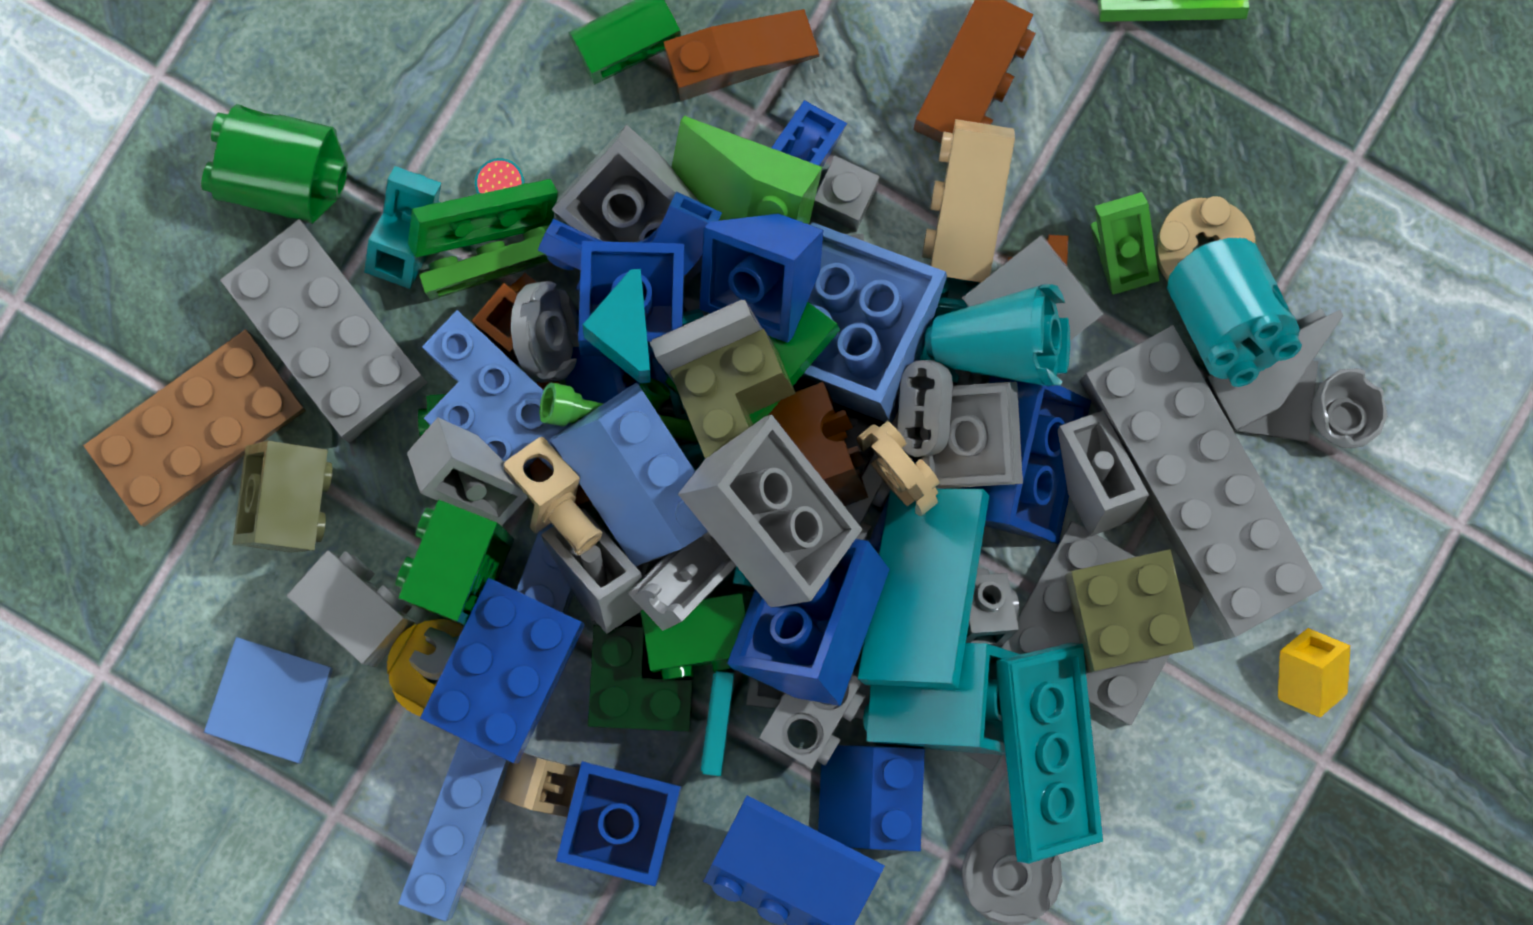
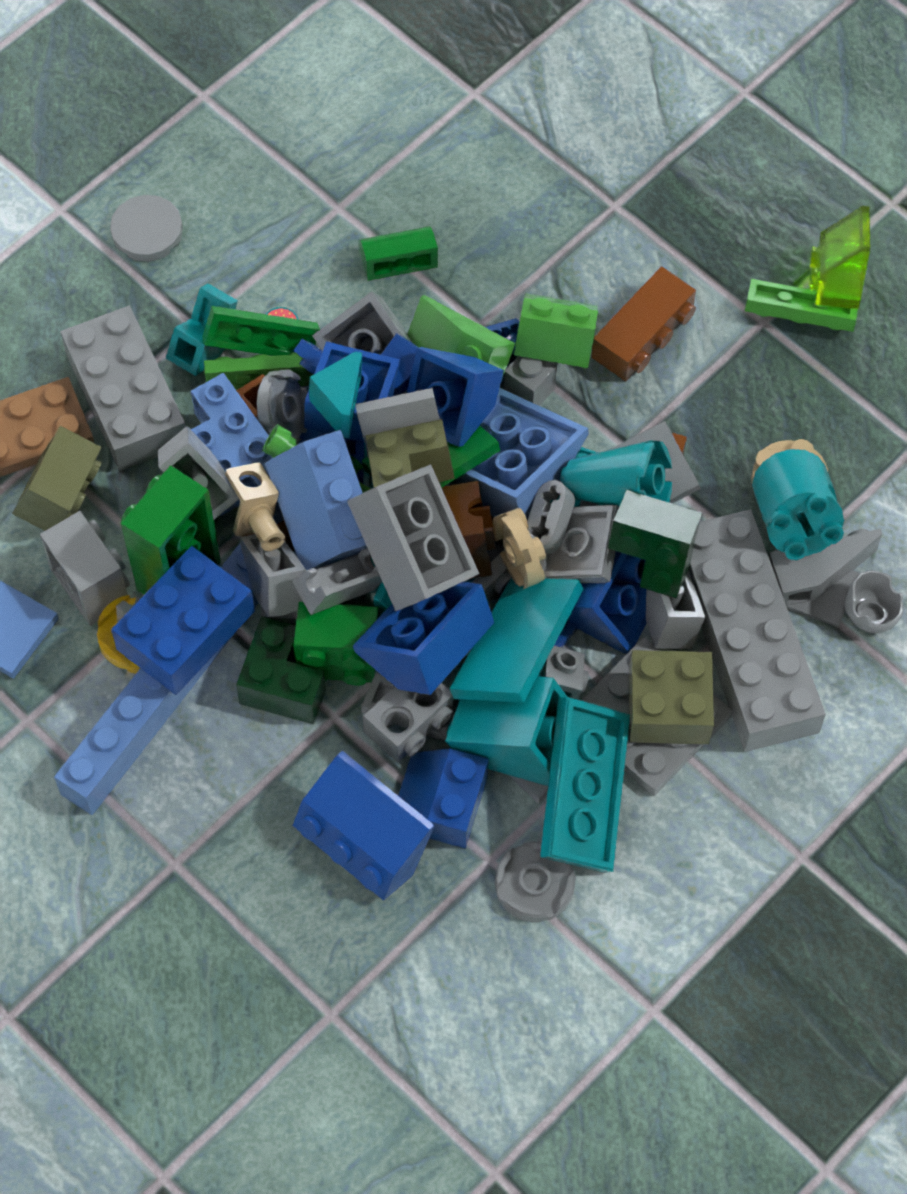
camera: 15 degrees right, 20 degrees down
(275, 164) = (122, 269): green cylinder -> none
(282, 74) = (146, 227): none -> light grey tile
(540, 785) = (191, 725): tan slope -> none
(619, 823) = (240, 764): blue brick -> none
(717, 723) = (335, 708): teal tile -> none
(738, 52) = (474, 275): dark orange slope -> none
(867, 116) = (556, 330): none -> bright green slope
(969, 199) = (620, 393): tan brick -> none
(1073, 418) = (658, 534): none -> dark green brick
(1125, 243) = (729, 454): bright green slope -> none
(1313, 672) = (807, 784): yellow panel -> none

